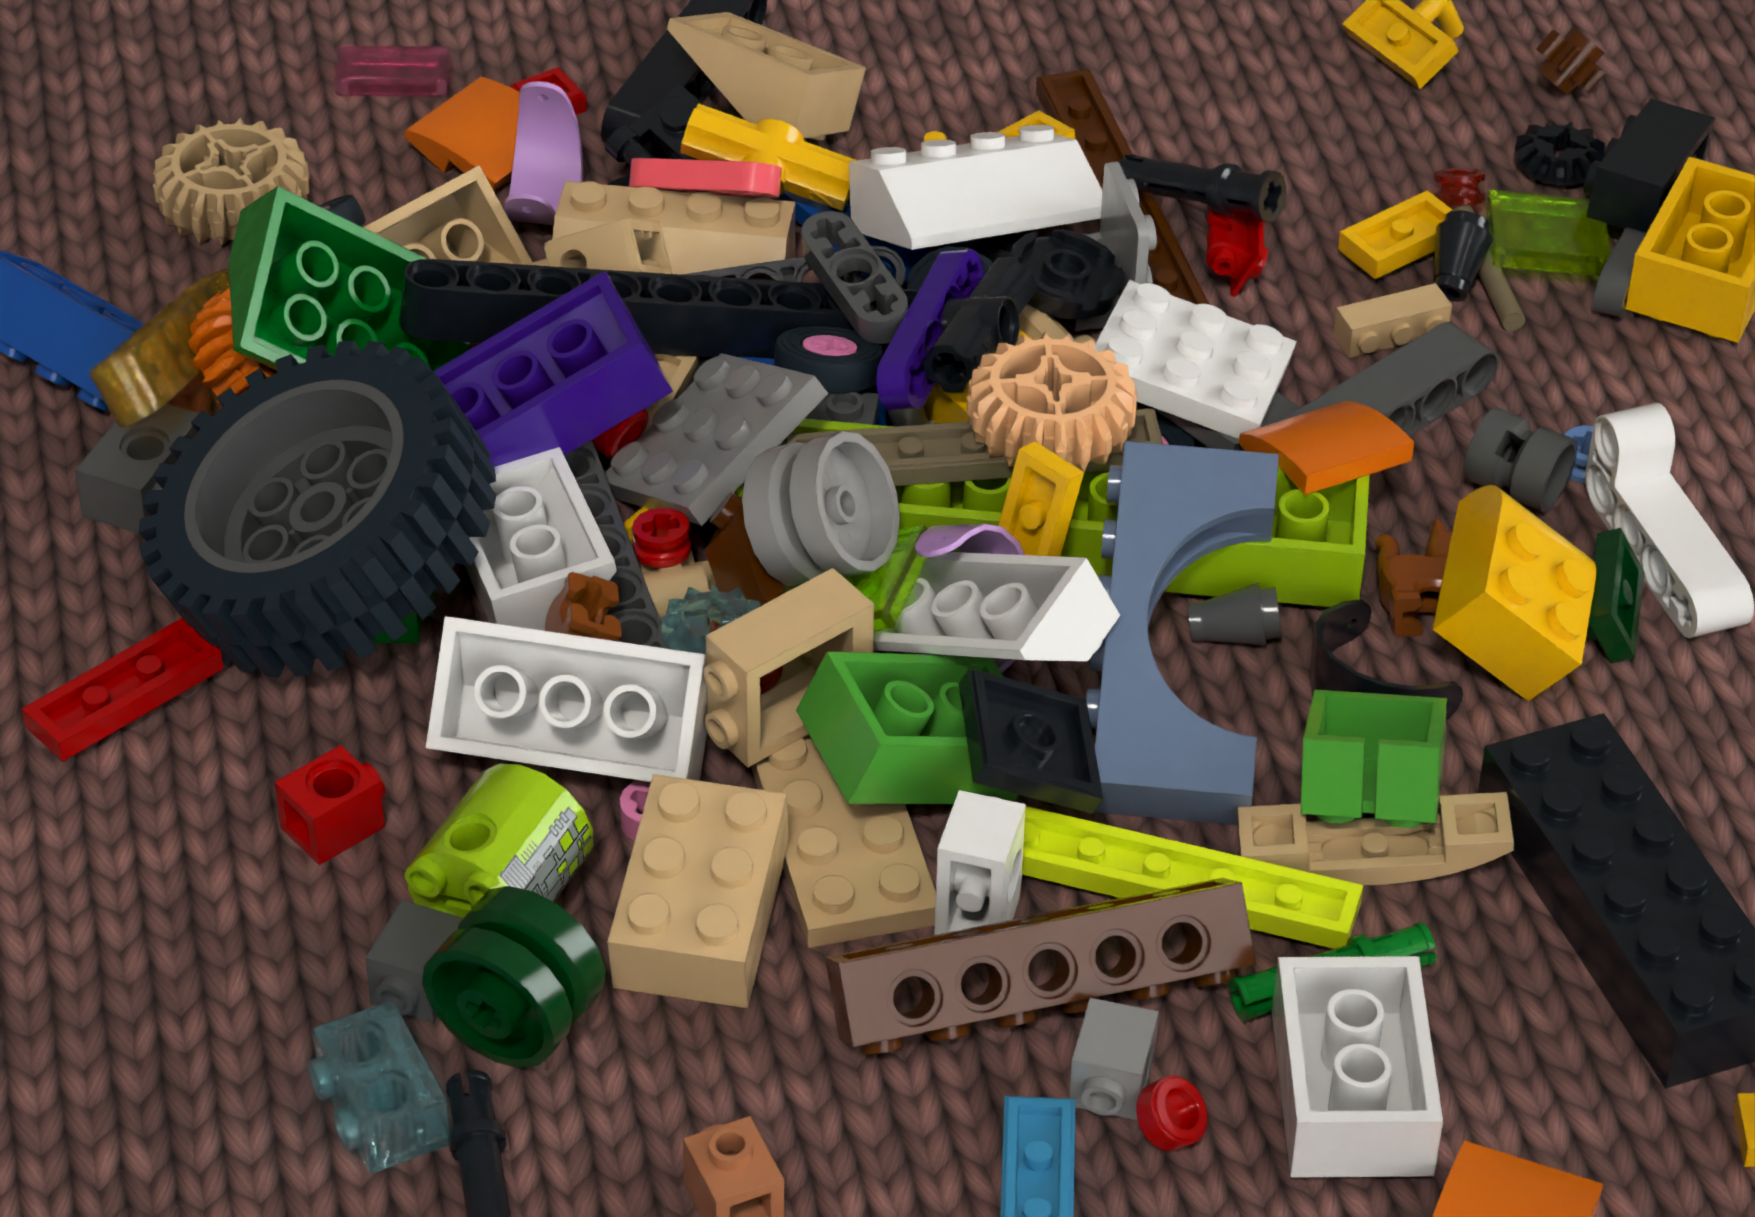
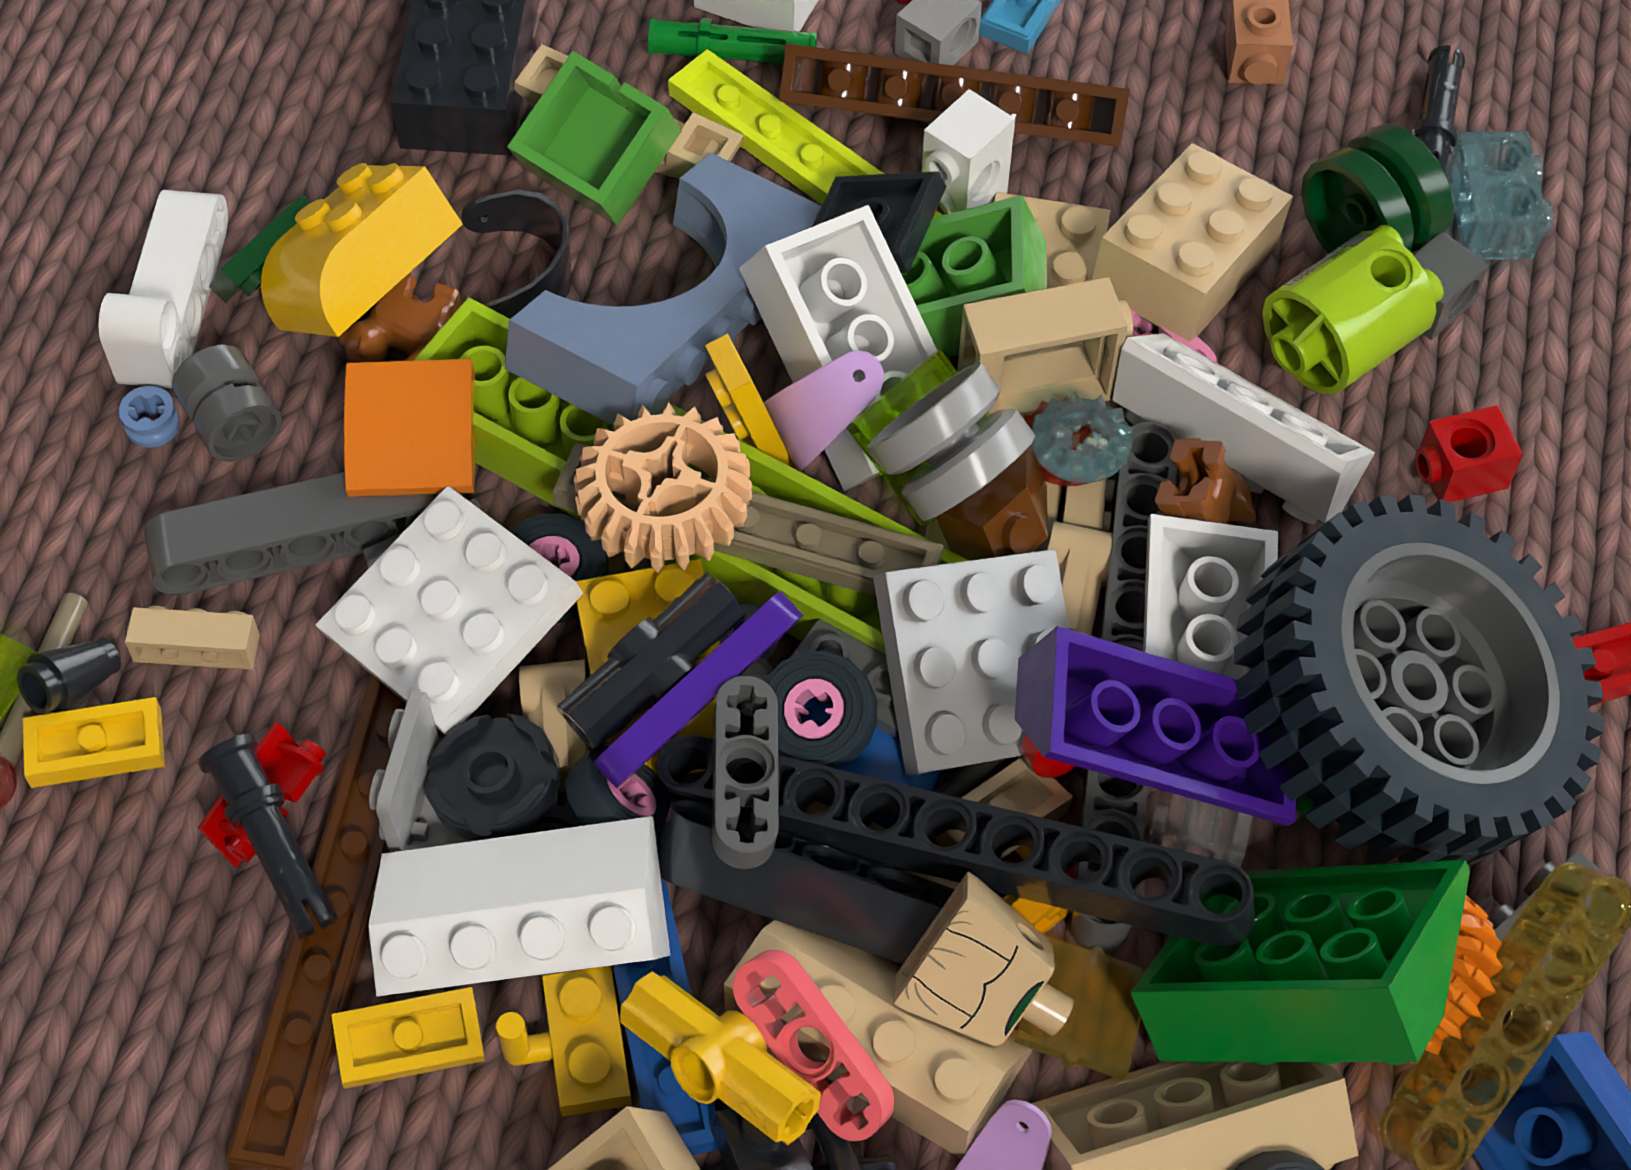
camera: 155 degrees left, 15 degrees up
(661, 537) = (1092, 585): red bush -> none

